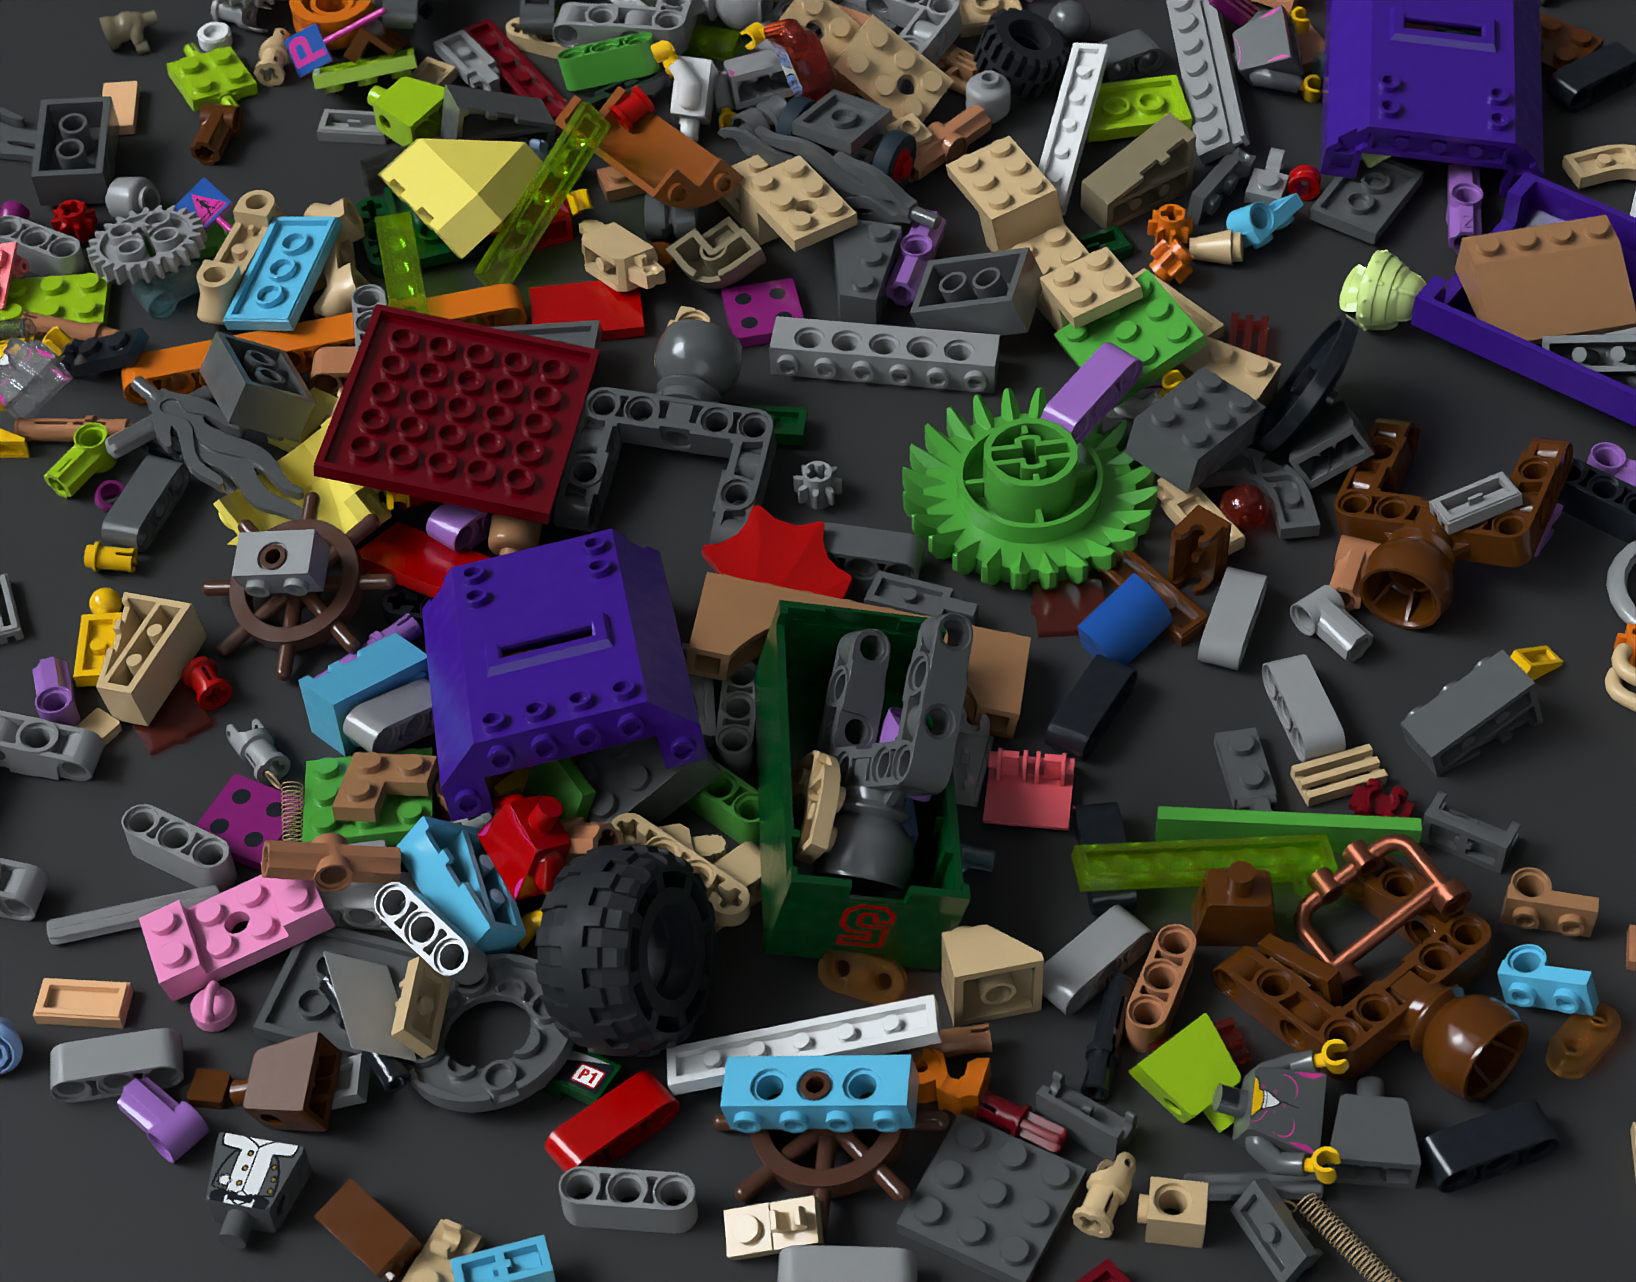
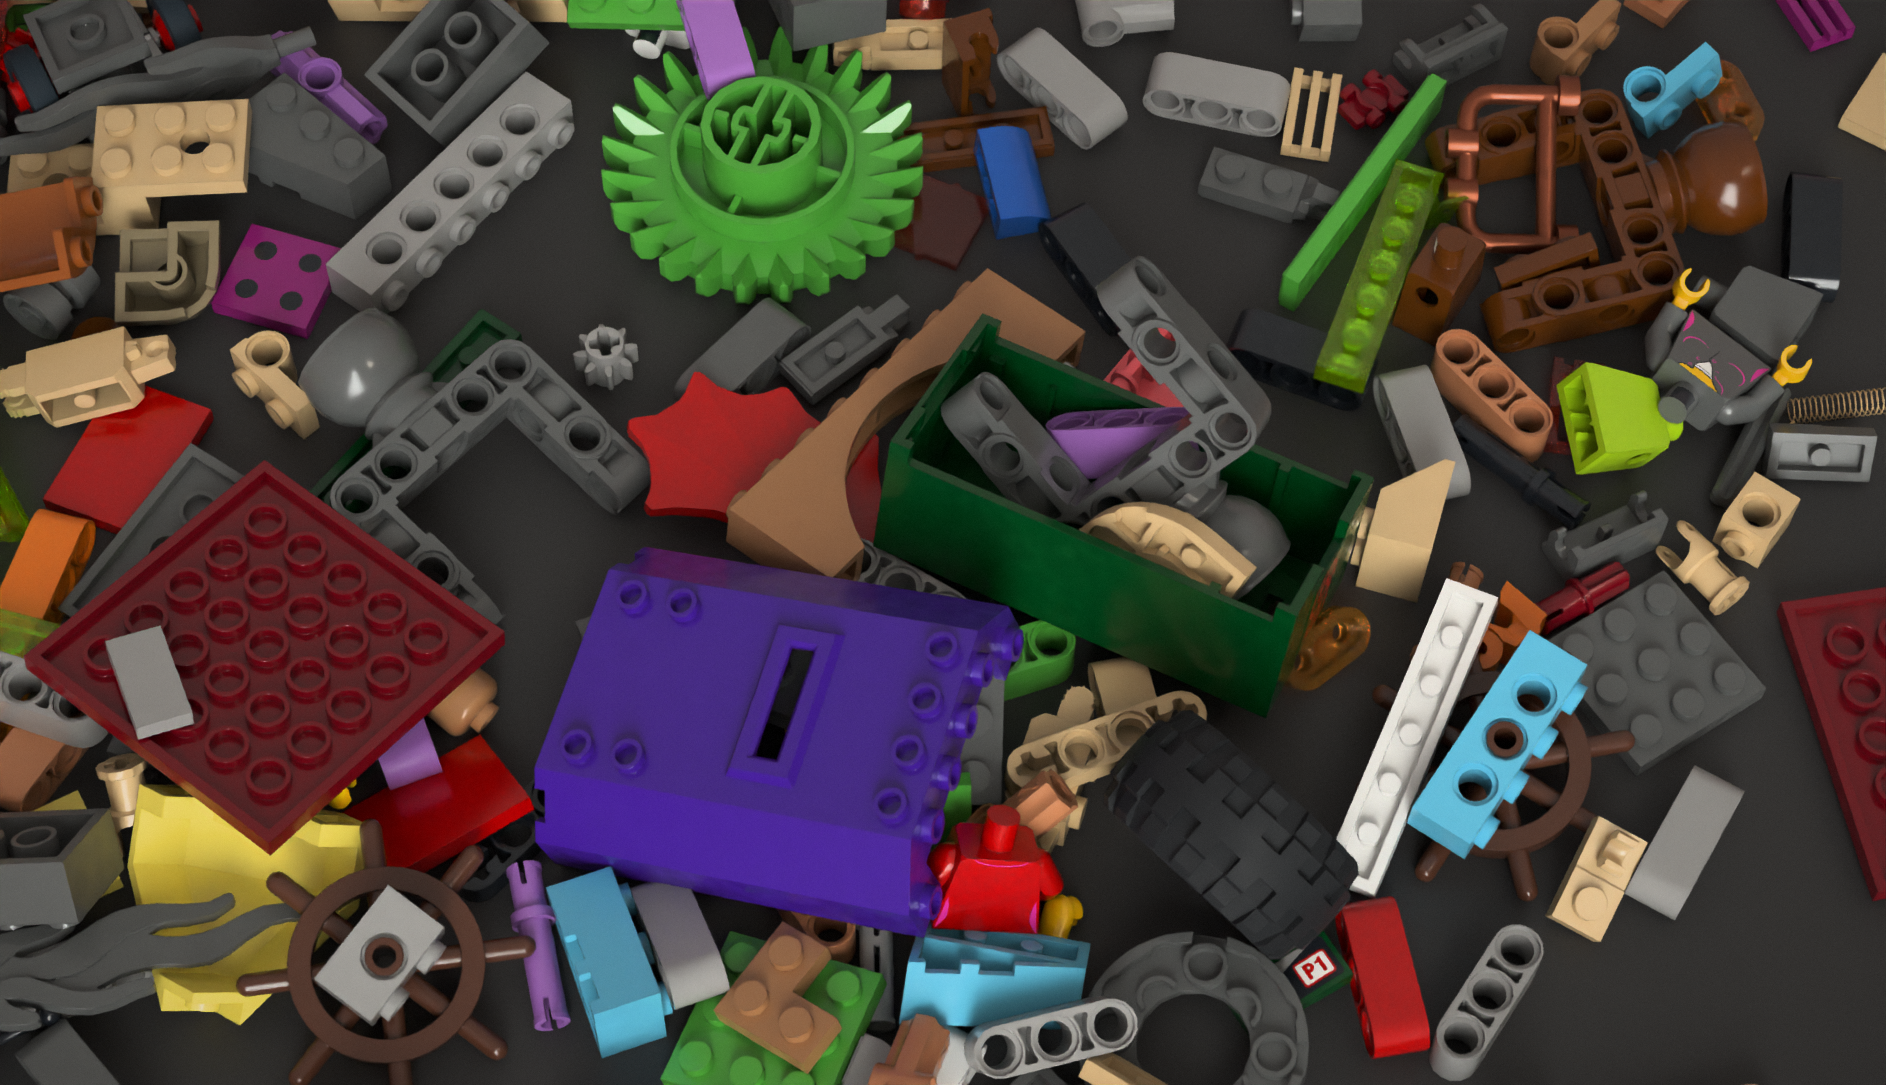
camera: 65 degrees left, 10 degrees up
(389, 361) = (149, 682): none -> light grey tile

